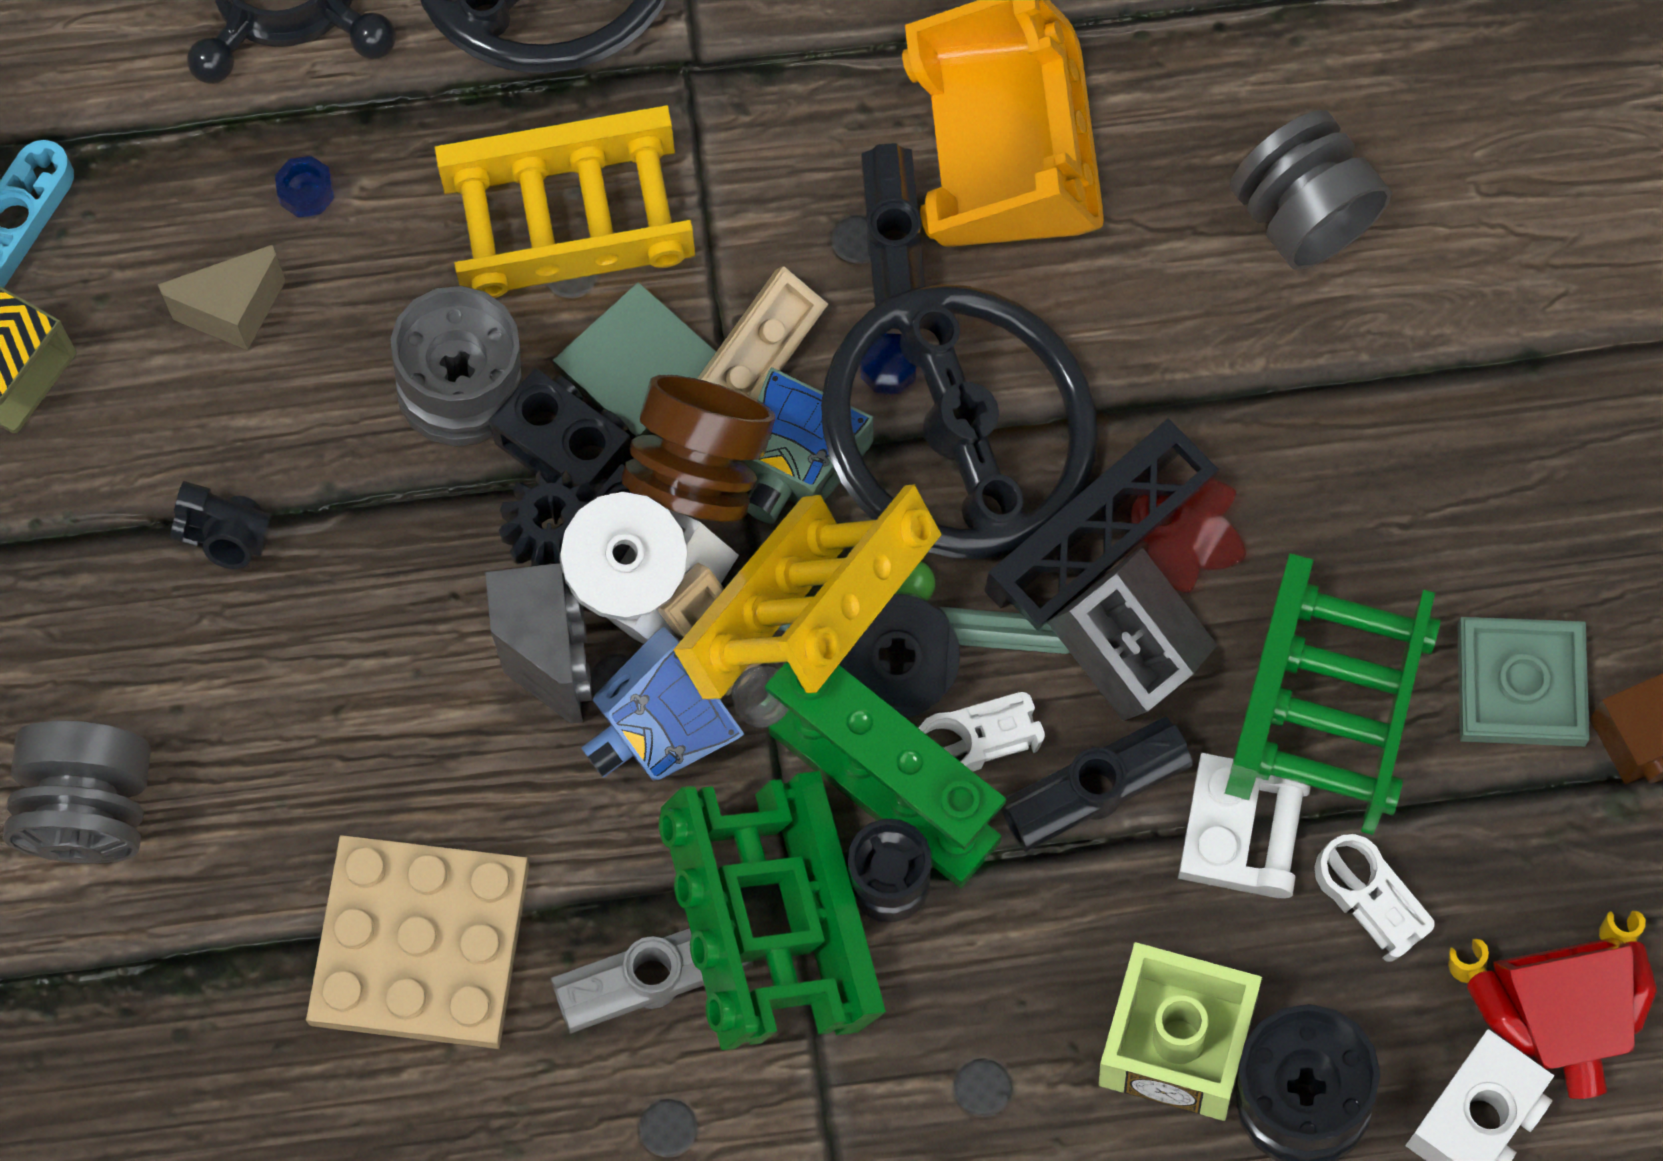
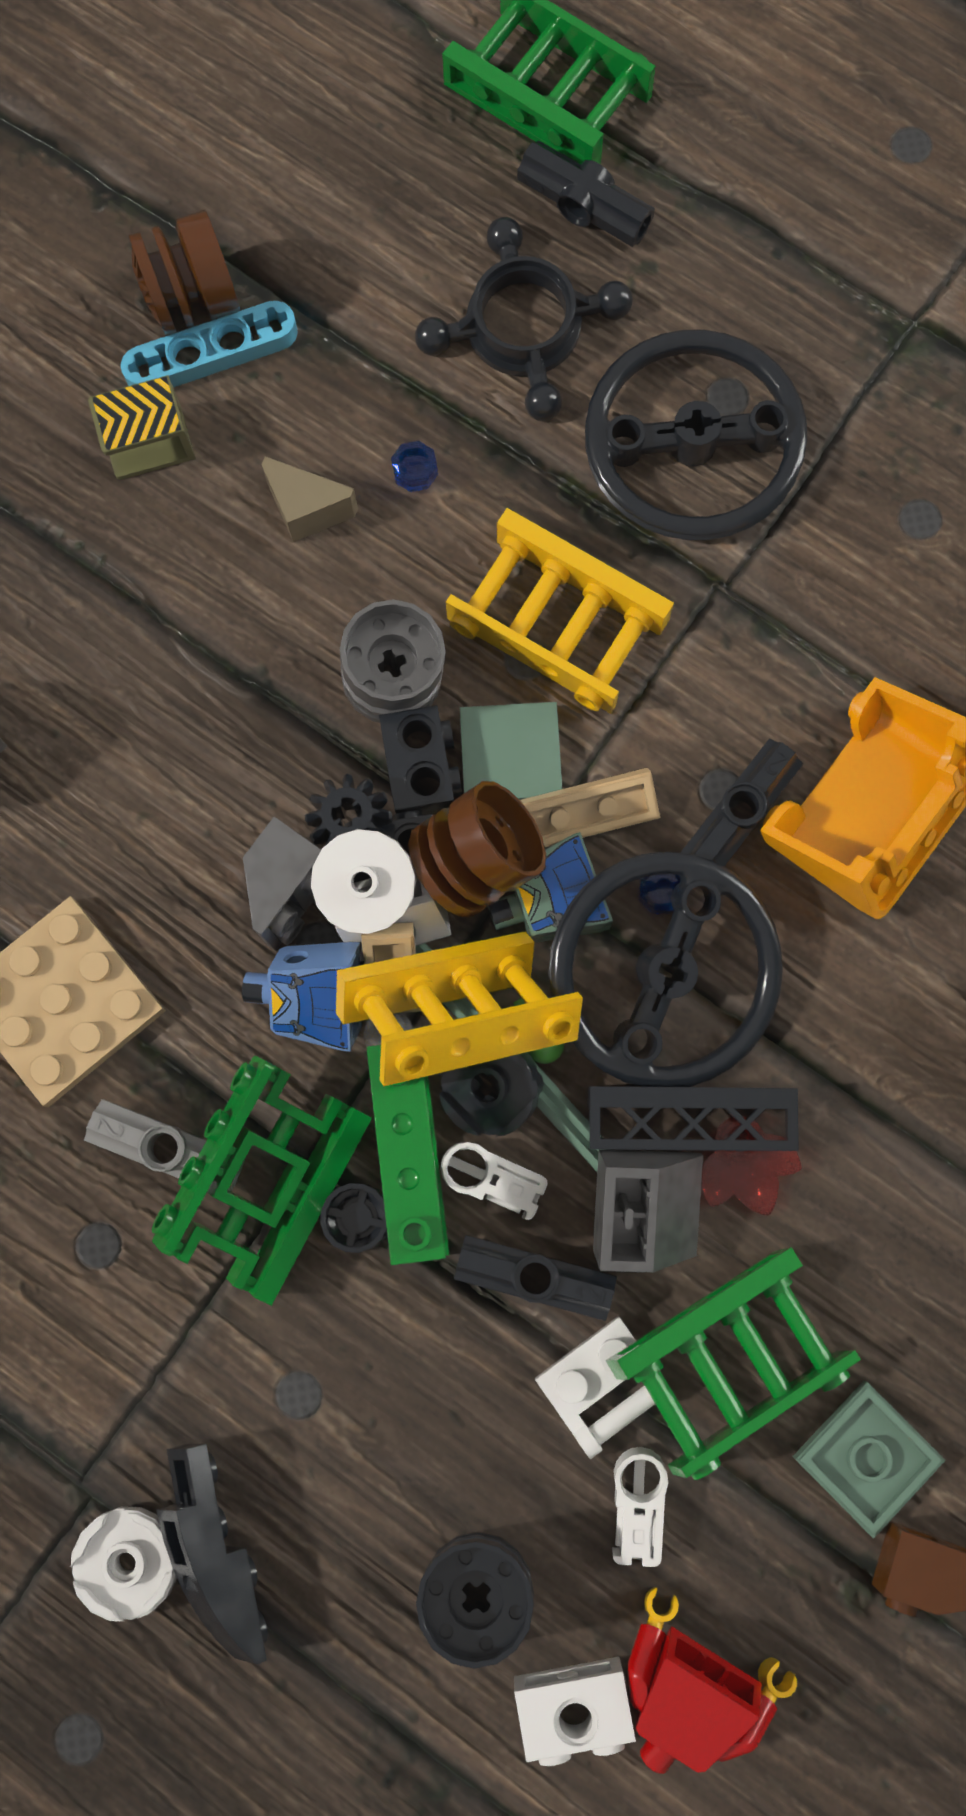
camera: 45 degrees right, 10 degrees up
(227, 527) = (175, 646): black plate -> none
(1179, 1031) = (434, 1488): yellowish green brick -> none

